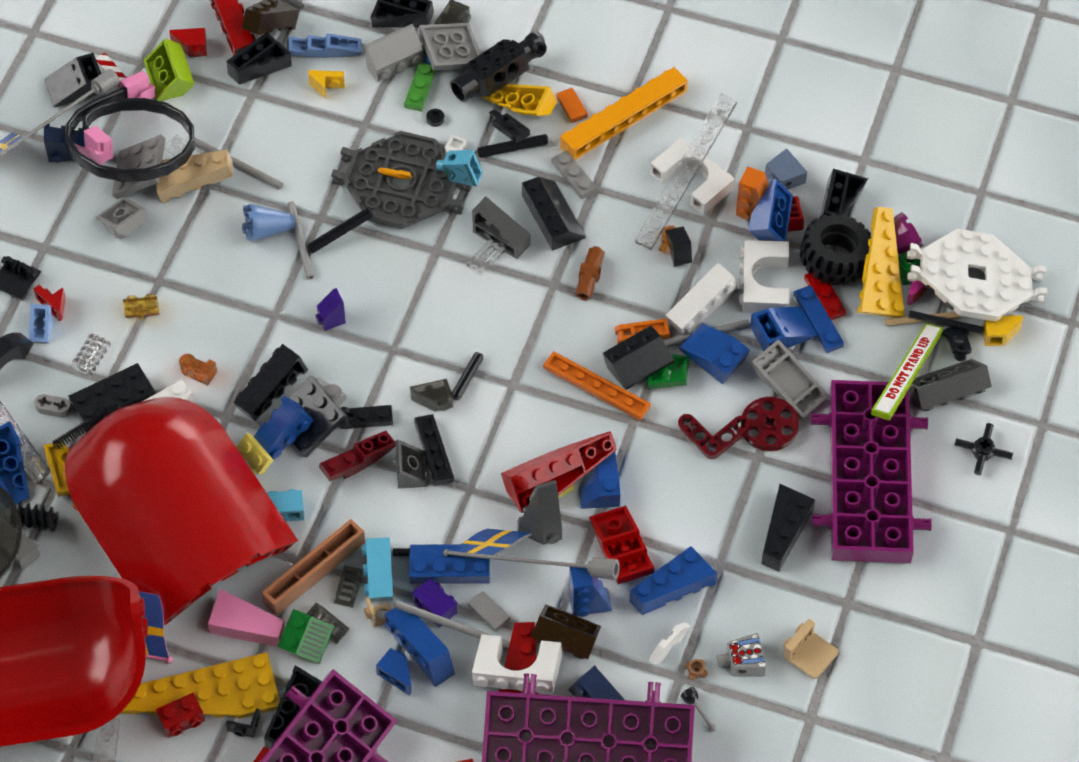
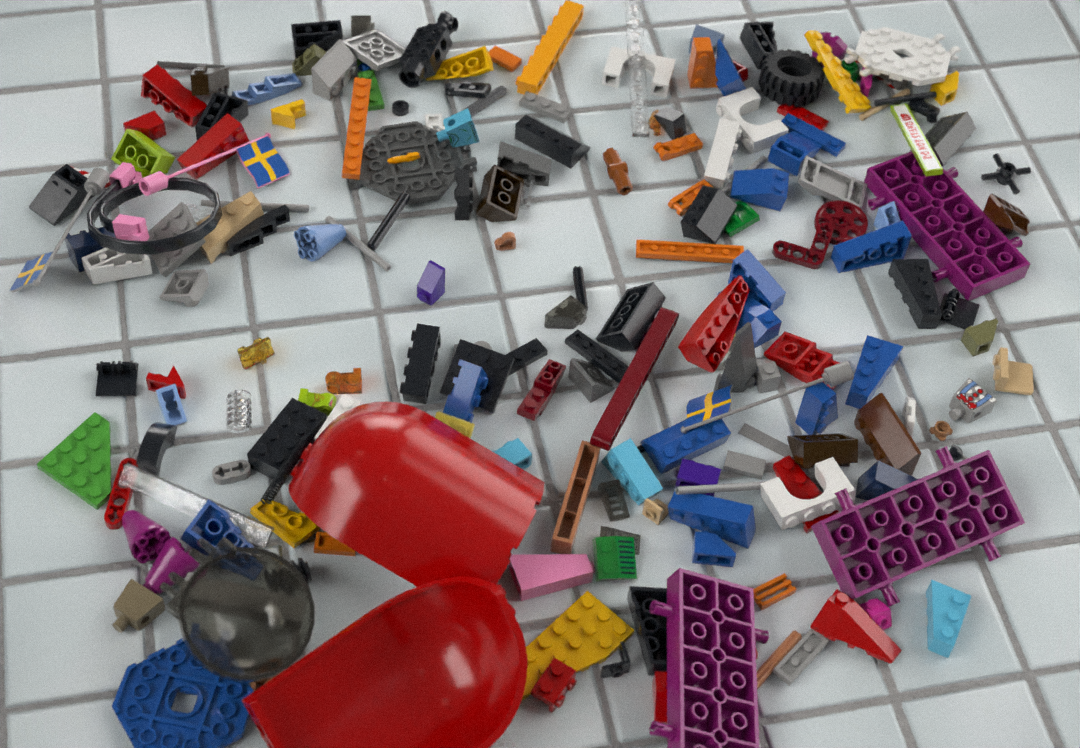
camera: 35 degrees left, 5 degrees down
(65, 169) = (111, 265): none -> white wedge
(158, 375) = (322, 402): none -> lime leg
(213, 190) = (253, 233): none -> black slope
(234, 88) = (220, 138): none -> red wedge
(268, 118) = (256, 155): none -> flag
(373, 123) = (356, 129): none -> orange plate
(379, 30) = (302, 65): none -> olive slope
(421, 234) = (463, 194): none -> black brick
(425, 730) = (786, 583): none -> orange tile
(432, 299) = (506, 241): none -> nougat tile
(443, 484) = (634, 379): none -> dark red beam
(458, 250) = (500, 195): none -> dark brown slope
(491, 426) = (632, 317): none -> black slope
(527, 597) = (766, 440): none -> light grey sticker
(571, 537) = (767, 376): none -> light grey slope
(630, 446) = (761, 284): none -> wedge
(631, 651) = (887, 435): none -> reddish brown slope
(671, 273) = (678, 147): none -> orange plate
(772, 464) = (872, 248): none -> blue wedge
(811, 600) = (979, 337): none -> olive slope
(812, 565) = (958, 310): none -> black hinge
(816, 444) = (886, 215): none -> light blue slope
(938, 494) = (1006, 215): none -> reddish brown wedge

